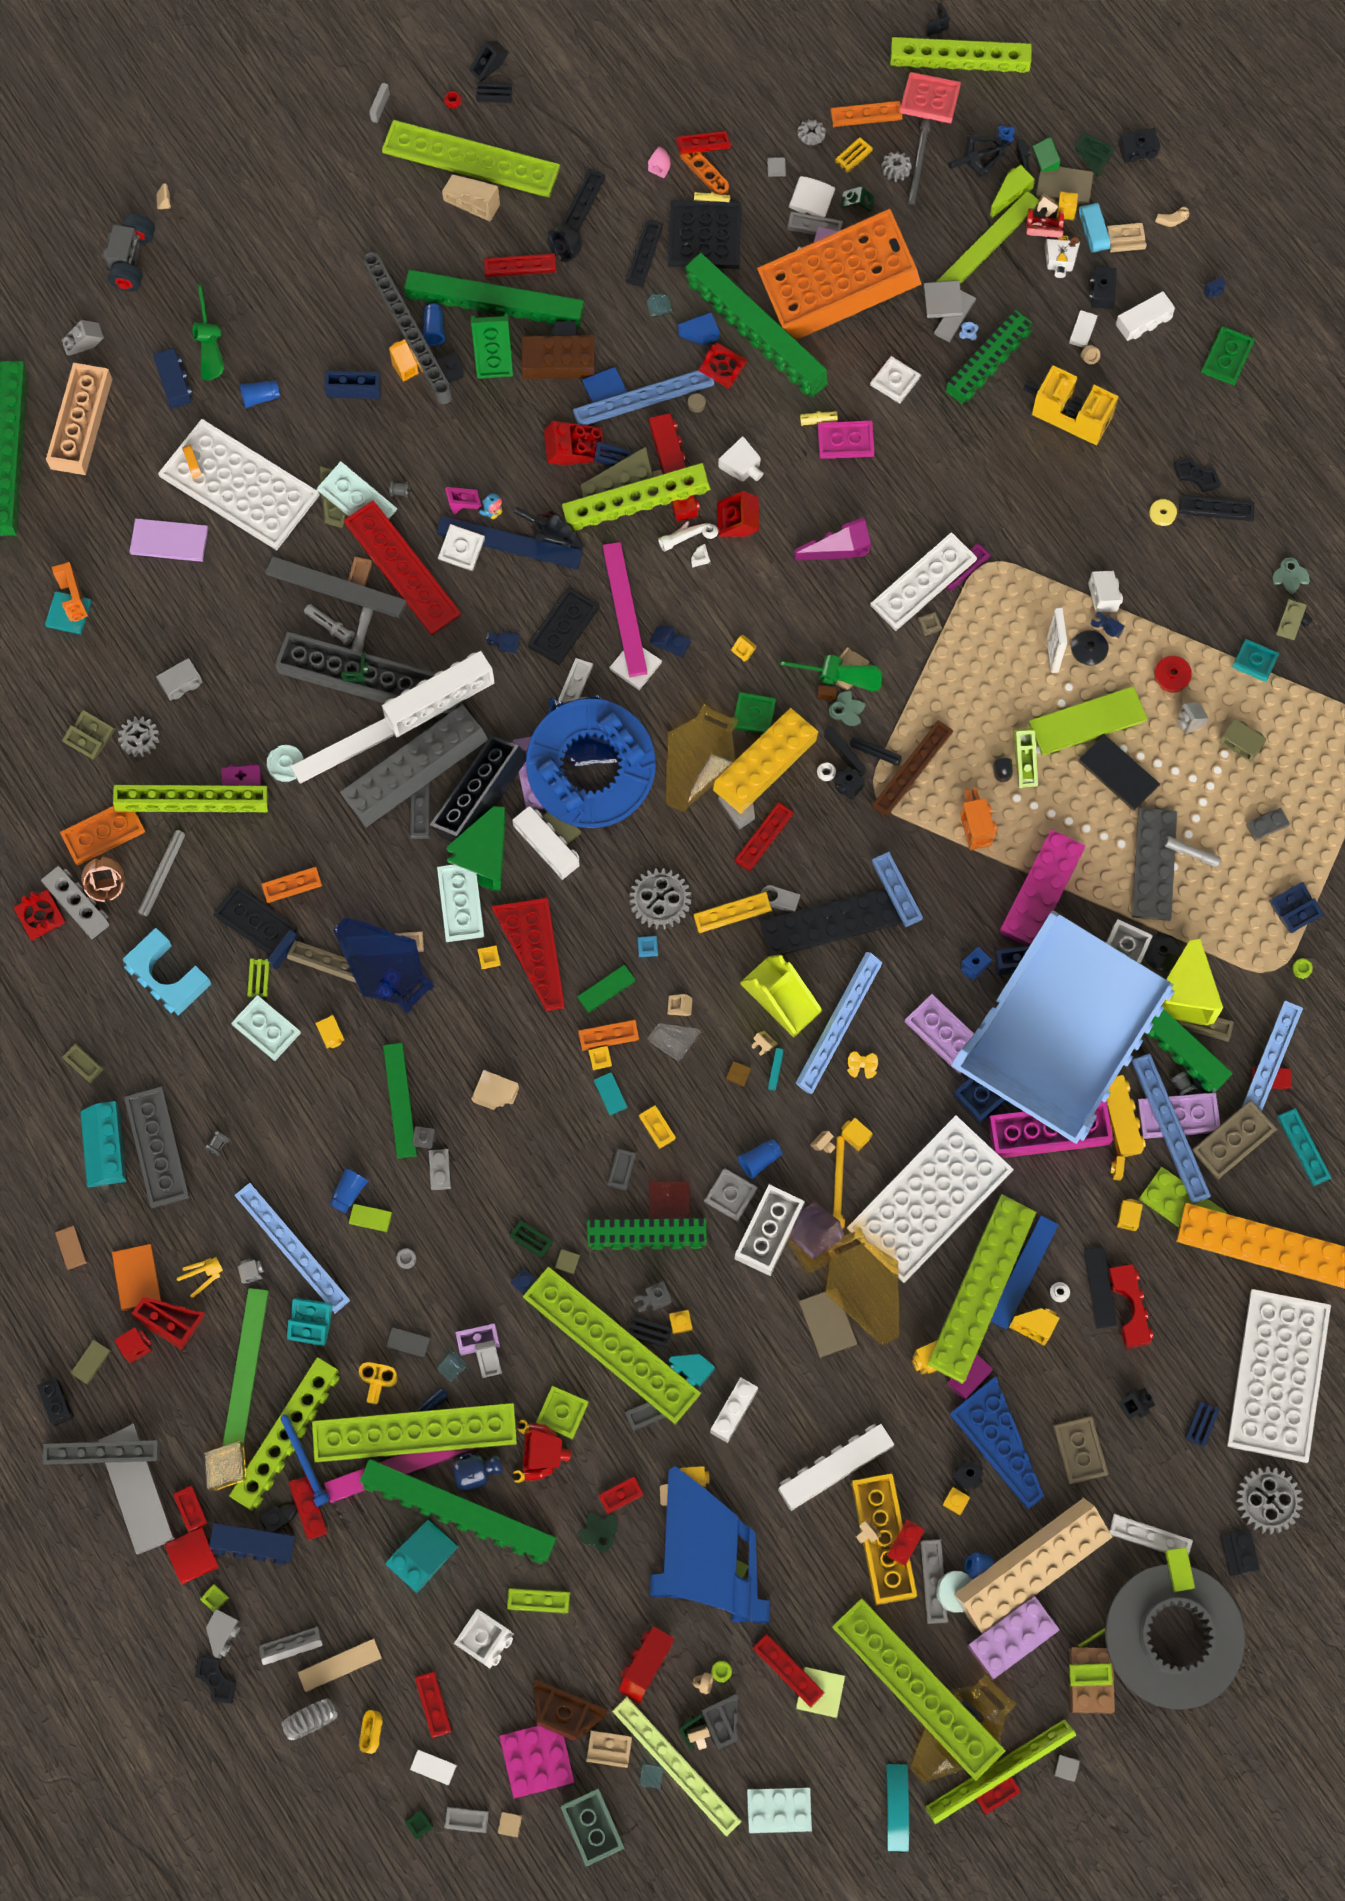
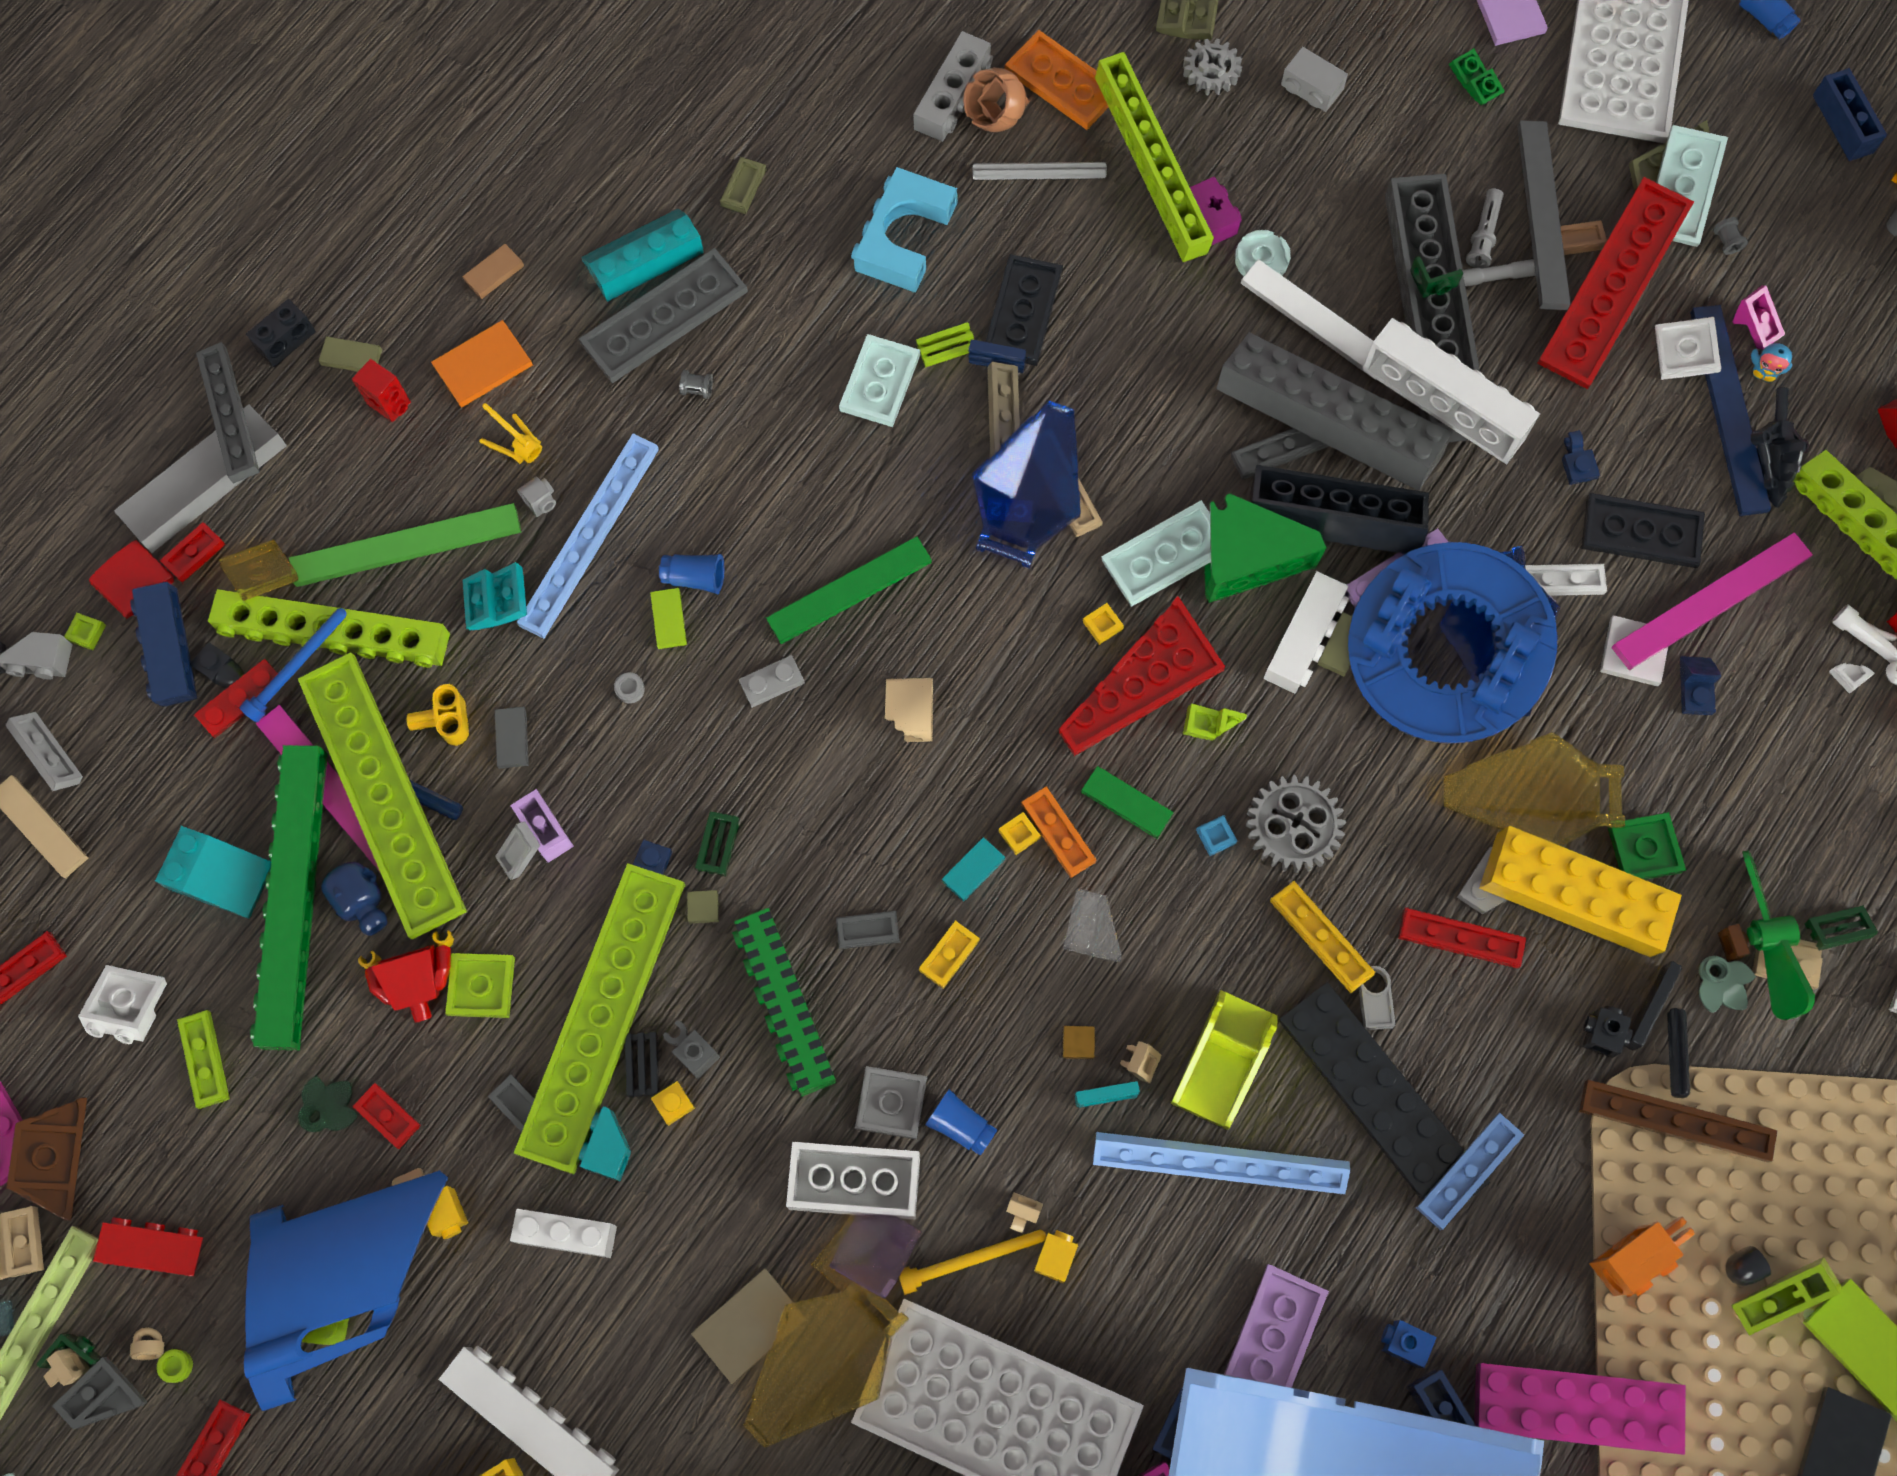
camera: 70 degrees right, 0 degrees up
(45, 925) = (895, 58): red piece -> none
(168, 1321) = (429, 421): red wedge -> none
(225, 582) = (1474, 77): none -> green slope
(291, 884) = (1093, 331): orange plate -> none
(330, 1032) = (906, 461): yellow brick -> none
(424, 1137) = (803, 638): flat silver bracket -> none
(452, 1366) = (497, 809): clear light blue slope -> none
(577, 921) = (1210, 723): none -> lime slope
(669, 1200) = (844, 1016): clear red plate -> none
(679, 1005) = (1148, 916): tan slope -> none
(743, 648) = (1741, 792): yellow plate -> none
(826, 766) = (1614, 984): white plate -> none
(840, 645) = (1820, 935): none -> dark green tile
(869, 1064) = (1171, 1213): yellow piece -> none

